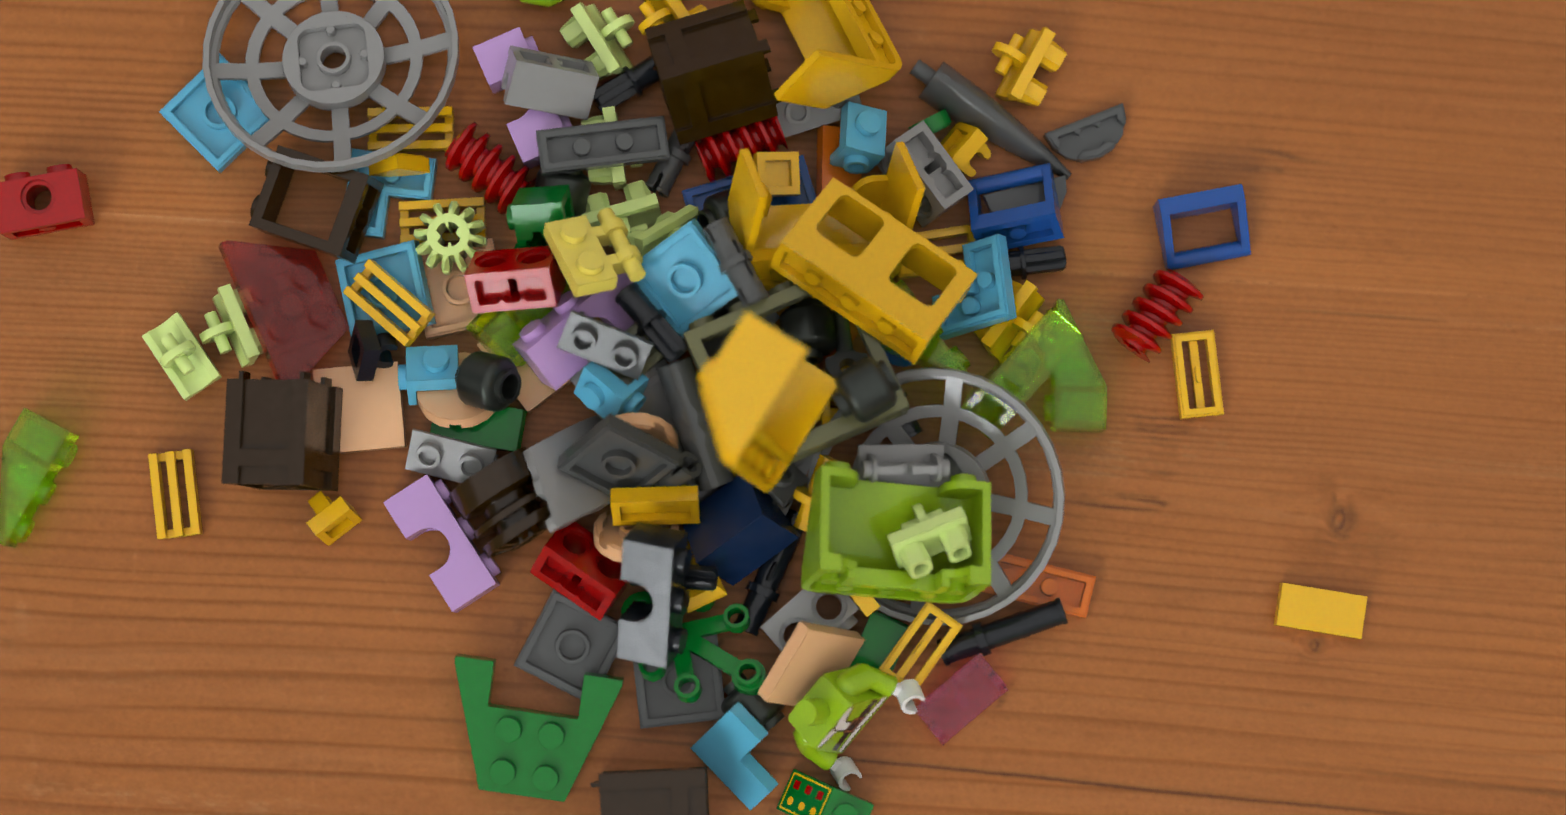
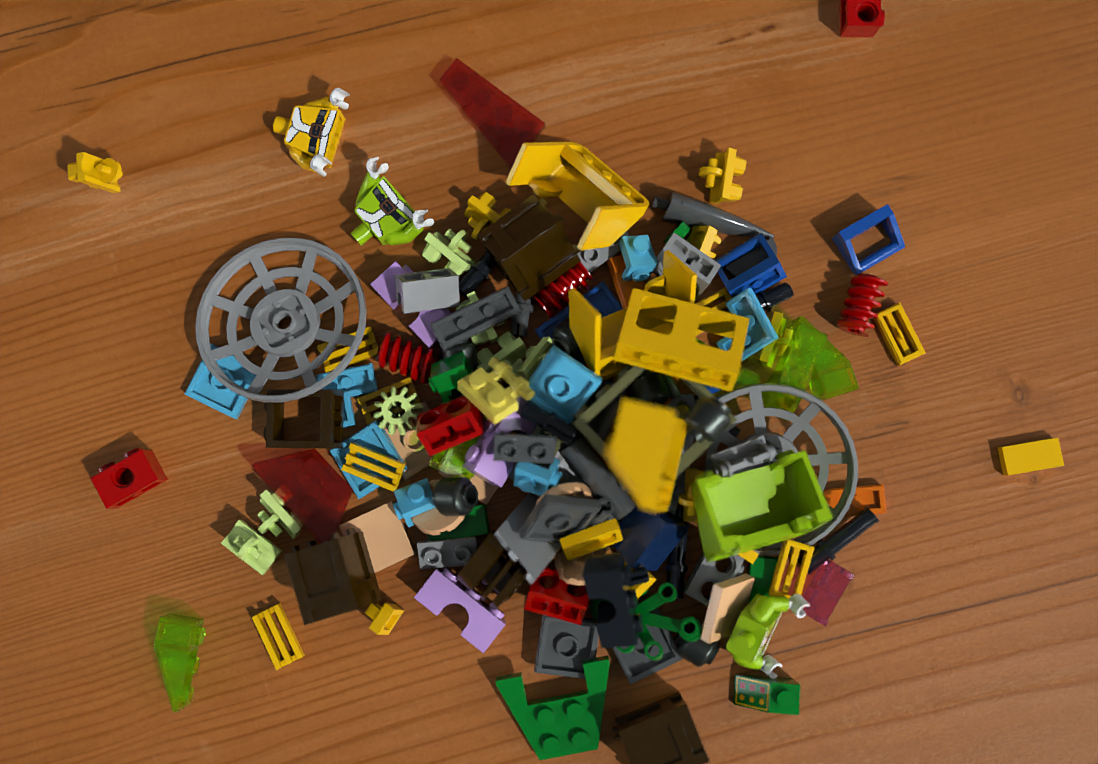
camera: 15 degrees left, 0 degrees up
(369, 350) = (371, 501): black tile -> none
(400, 165) = (350, 375): yellow tile -> none
(727, 754) = (693, 680): medium azure tile -> none
(735, 262) = (591, 365): dark grey pin -> none
(779, 172) = (596, 295): yellow tile -> none
(928, 536) = (778, 498): yellowish green hips -> none
(1089, 137) = (778, 208): dark grey tile -> none

